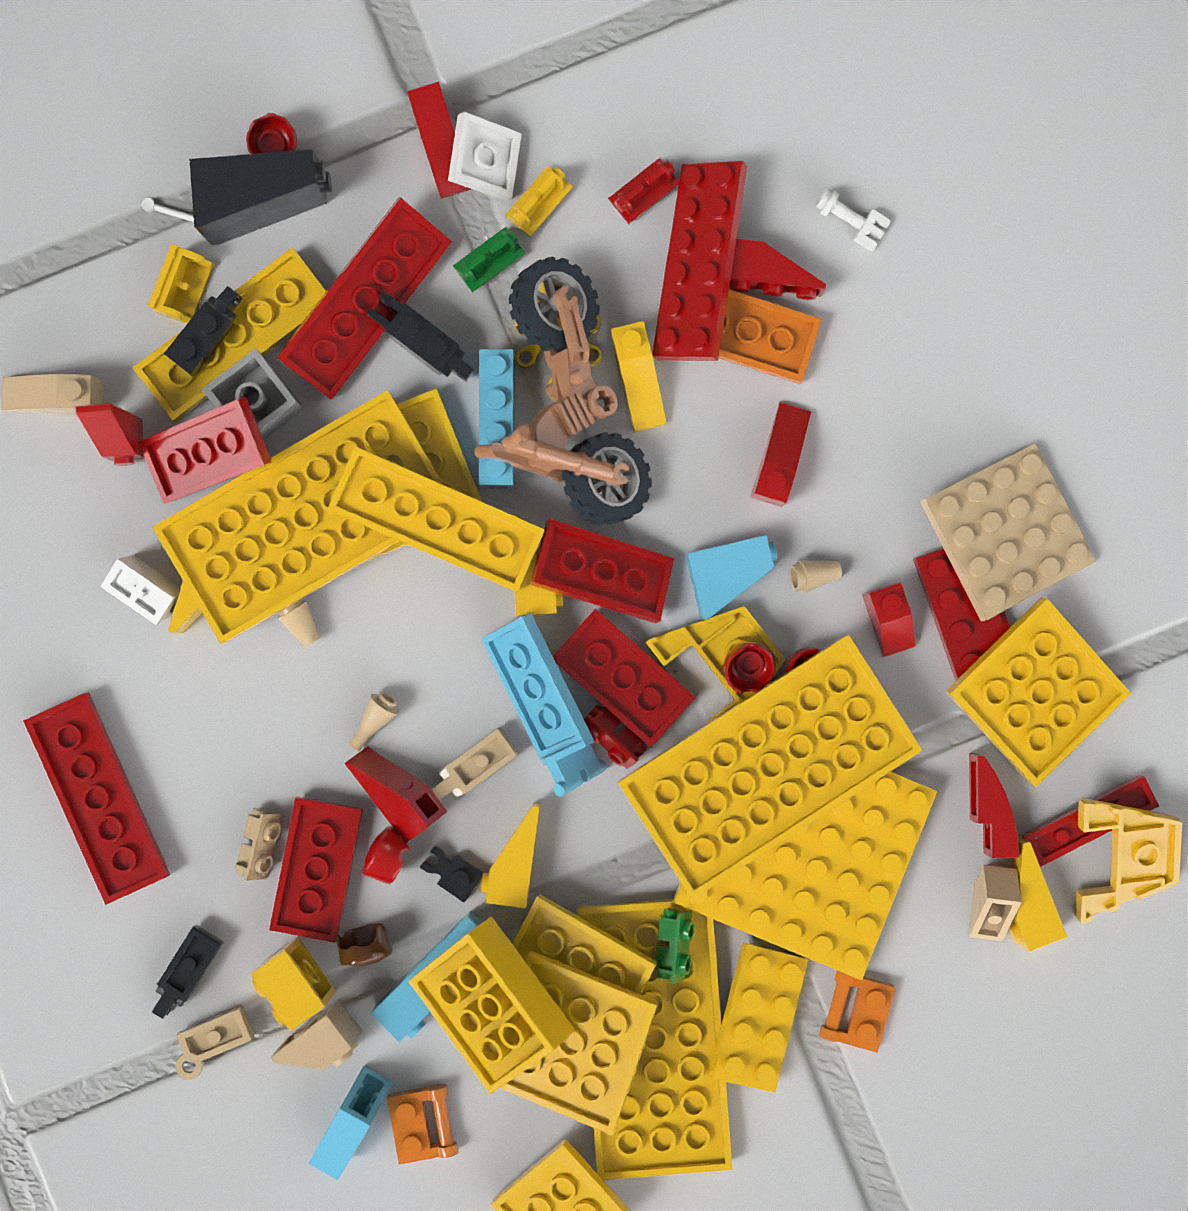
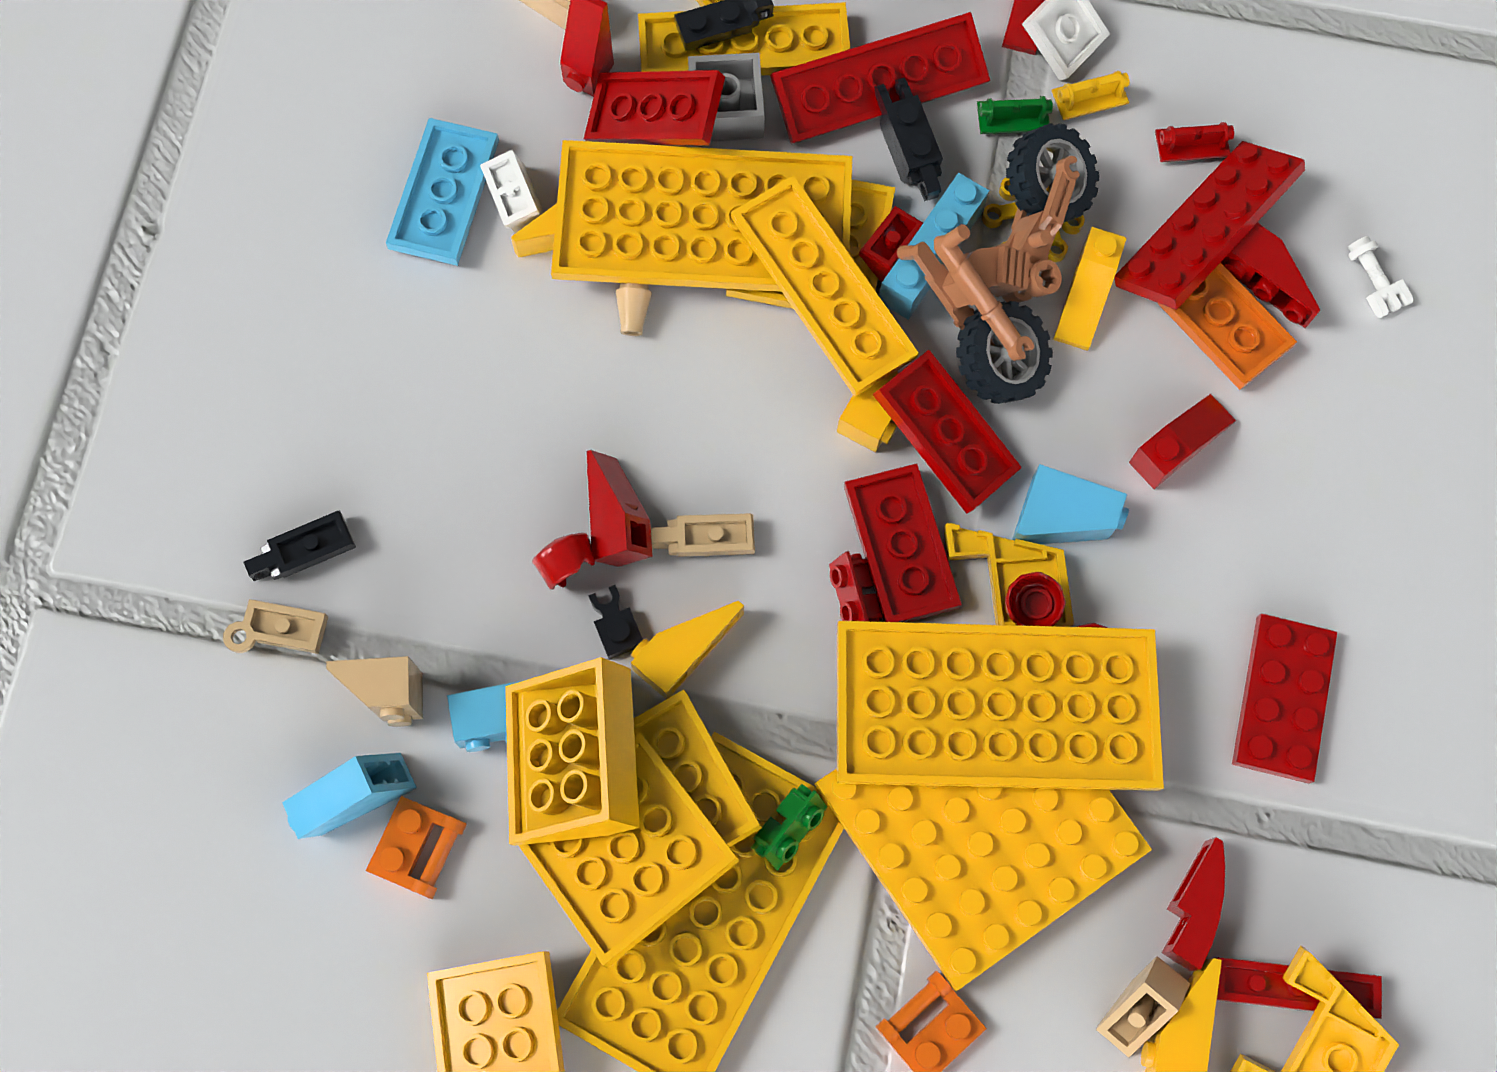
camera: 35 degrees right, 15 degrees down
(85, 621) = (442, 192): none -> medium azure plate
(96, 798) = (338, 346): red plate -> none
(256, 859) = (465, 471): tan hinge -> none
(293, 984) = (393, 615): yellow brick -> none
(316, 869) = (490, 534): red plate -> none
(363, 945) = (484, 633): reddish brown hair -> none
(378, 712) = (646, 431): tan cone -> none
(462, 439) = (882, 247): none -> red slope
(544, 703) = (812, 515): medium azure hinge -> none
(758, 1017) = (825, 962): yellow plate -> none
(812, 574) = (1147, 564): tan cone -> none
(891, 618) = (1203, 652): red slope -> none
(1008, 532) = (1371, 644): tan plate -> none
(1038, 691) = (1316, 817): yellow plate -> none

